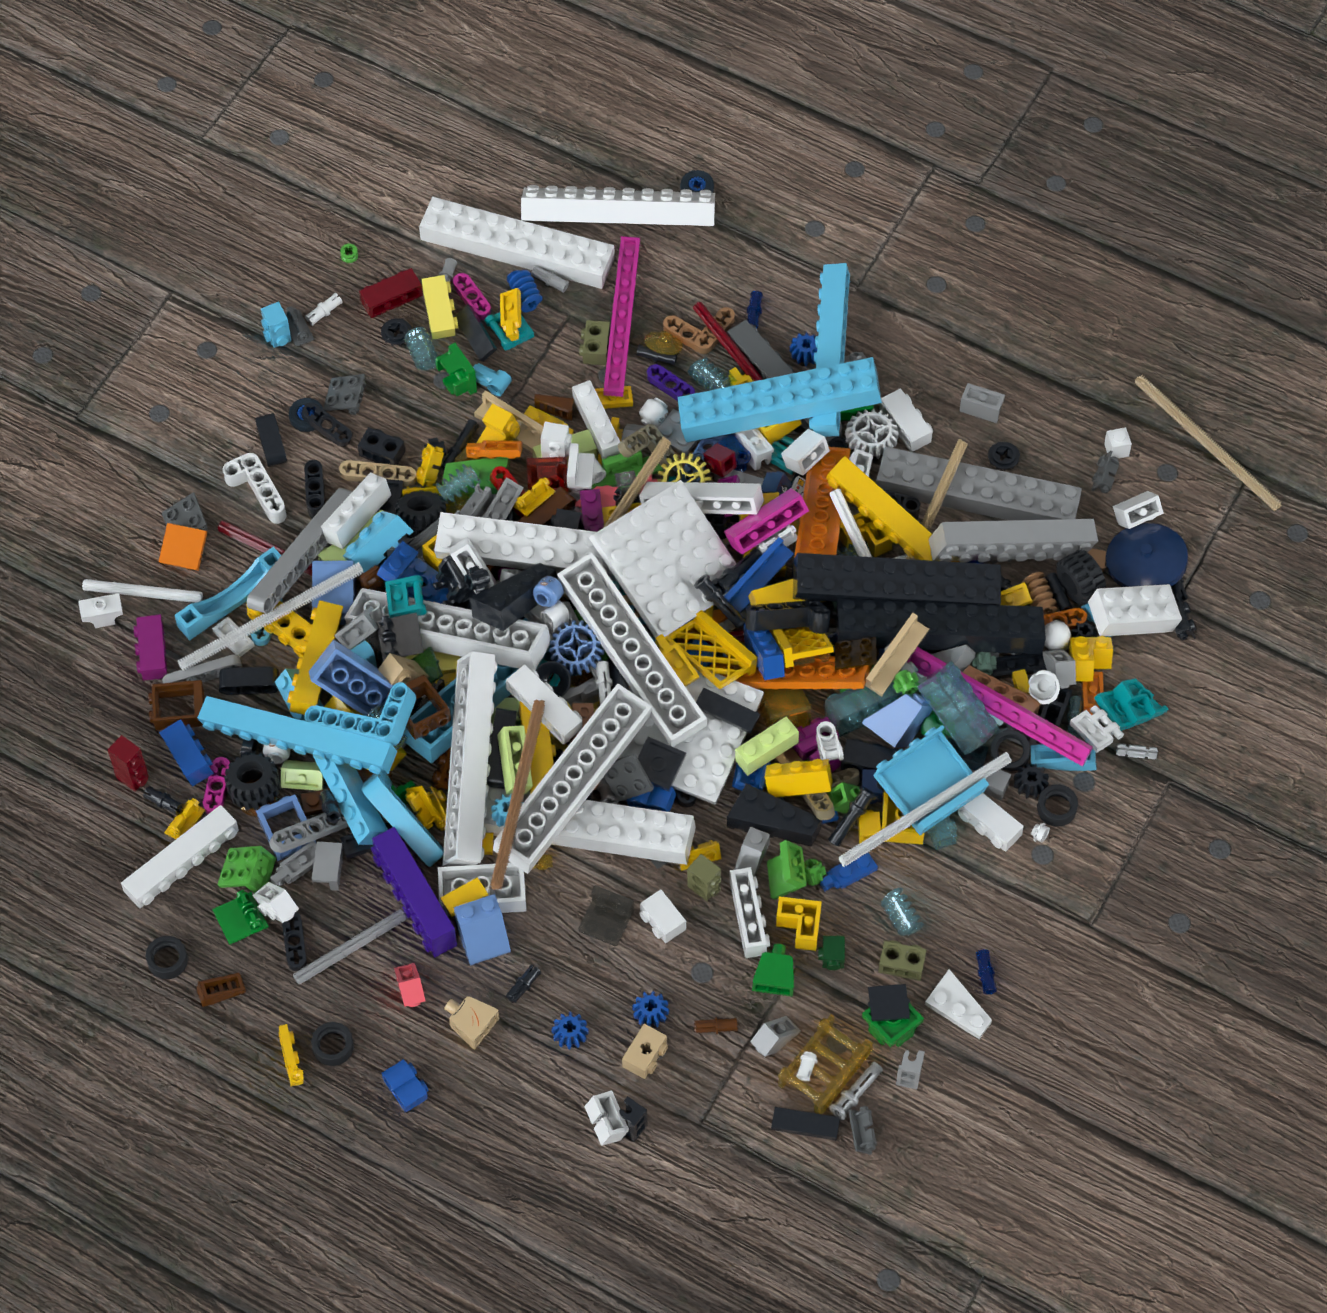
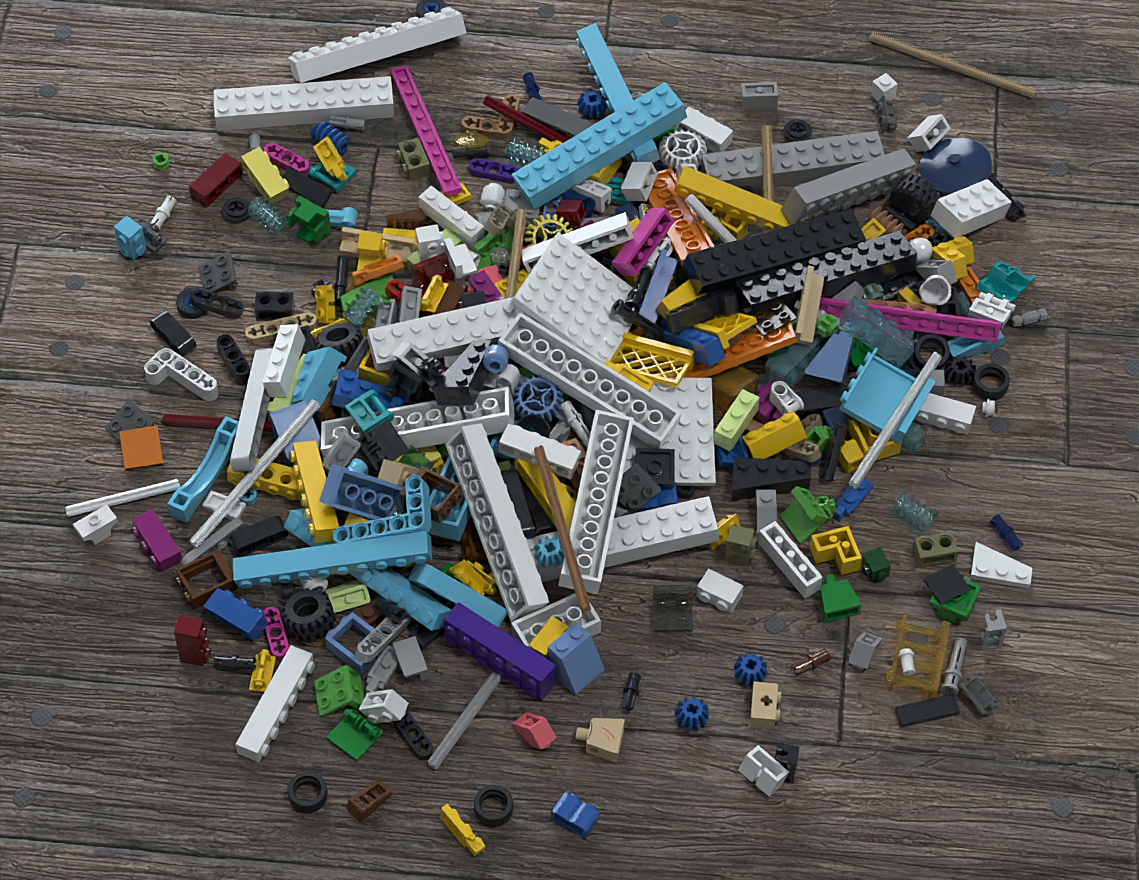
camera: 25 degrees left, 5 degrees down
(510, 746) = (535, 505): yellowish green brick -> none
(727, 710) = (693, 402): black tile -> none

